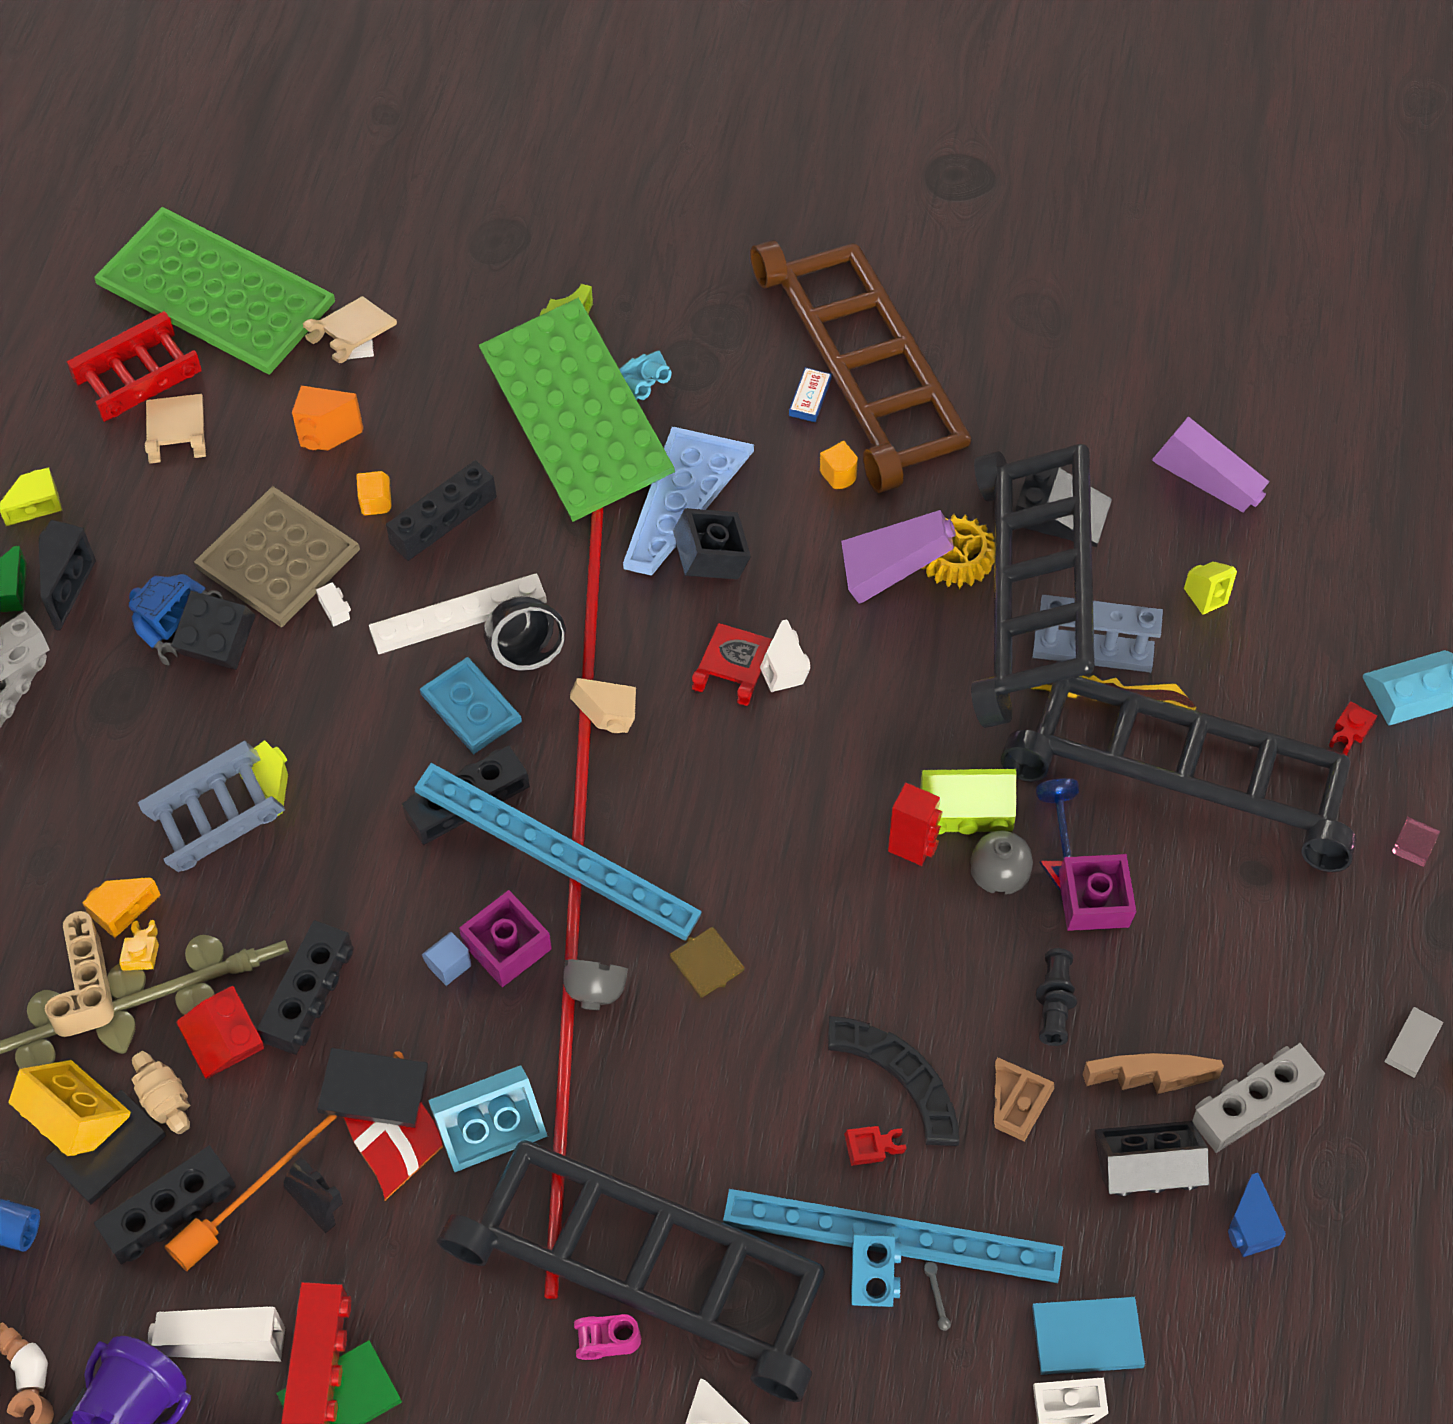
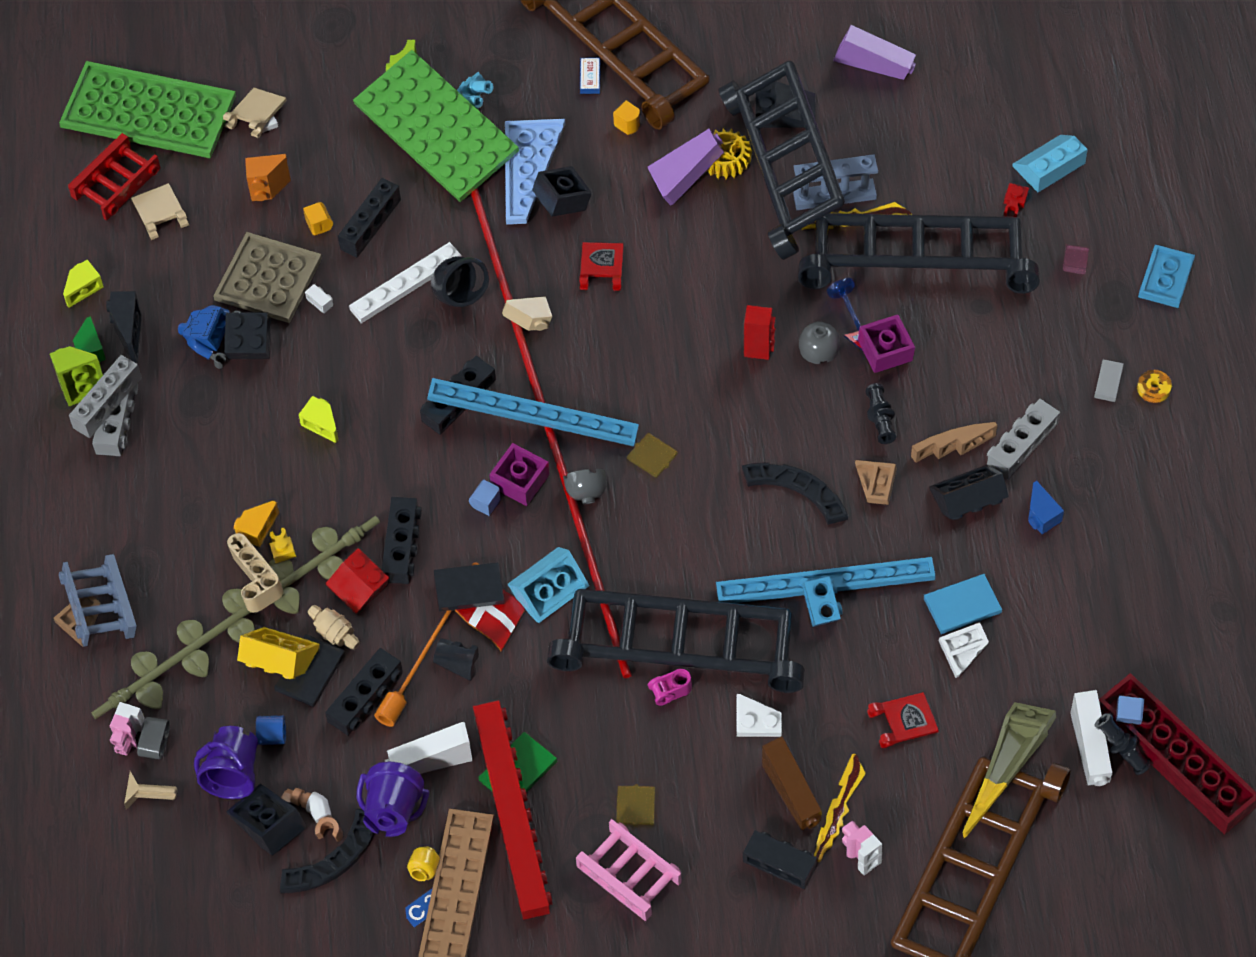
camera: 15 degrees left, 0 degrees up
(188, 790) = (276, 437): sand blue fence -> none
(470, 705) = (437, 338): dark azure tile -> none
(784, 660) = (636, 253): white slope -> none
(869, 1146) = (793, 533): red plate -> none
(930, 1270) = (855, 595): dark grey hinge -> none
(973, 799) = (792, 306): slope -> none
(1210, 585) = (897, 132): neon yellow slope -> none

